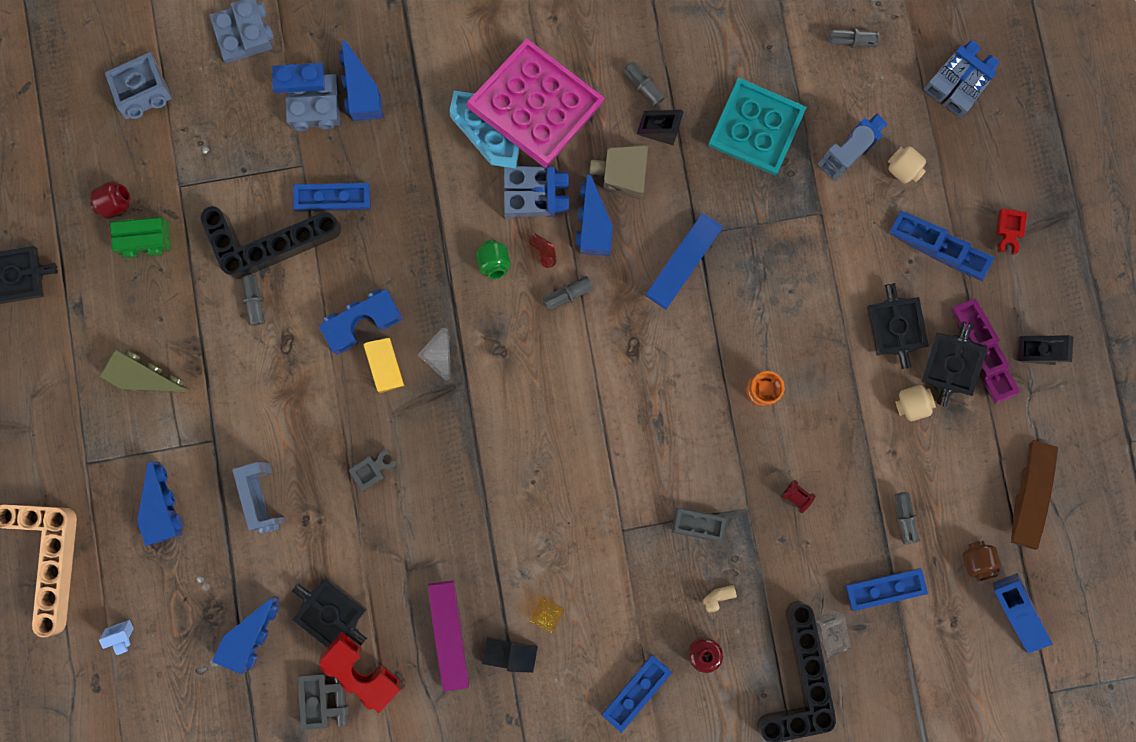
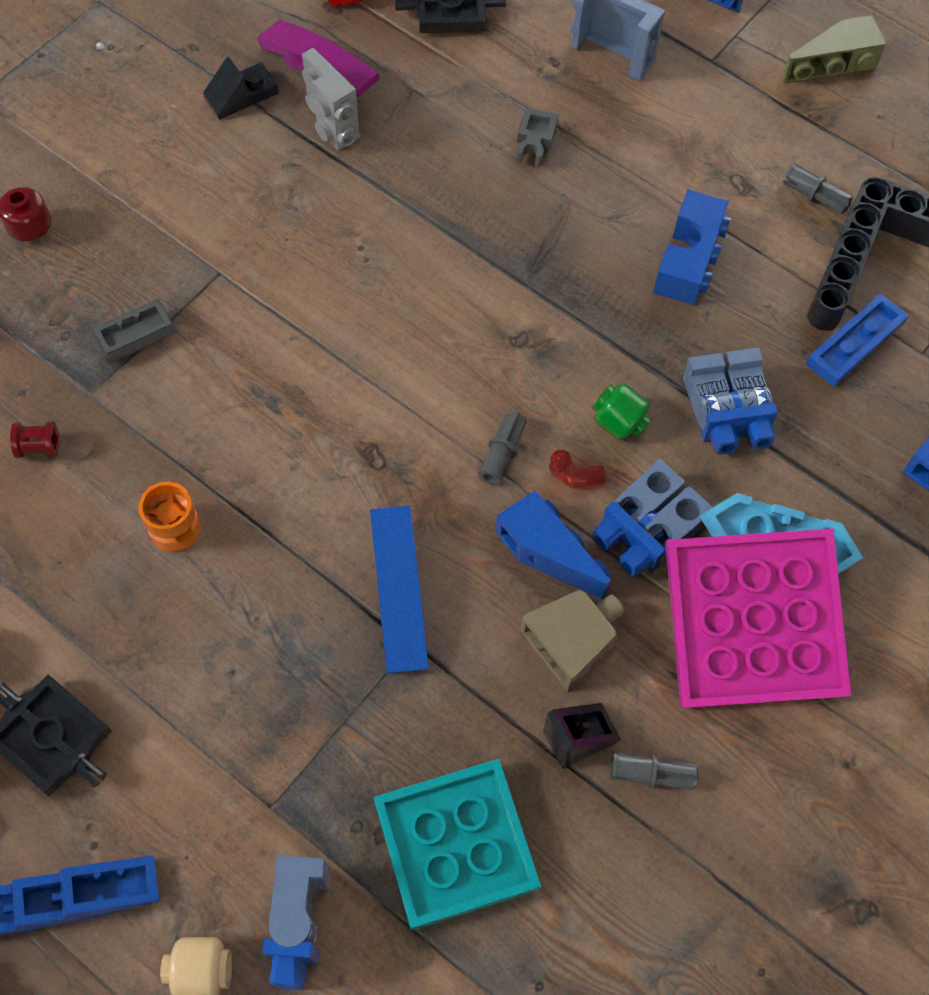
camera: 140 degrees right, 20 degrees down
(383, 365) = (626, 229): yellow slope -> none
(431, 218) = (731, 399): none -> hips
(437, 354) = (577, 275): clear slope -> none
(476, 579) = (331, 100): none -> light grey plate
(547, 615) = (233, 143): clear yellow tile -> none
(636, 693) = (75, 142): blue plate -> none
(717, 595) = (57, 280): tan arm -> none

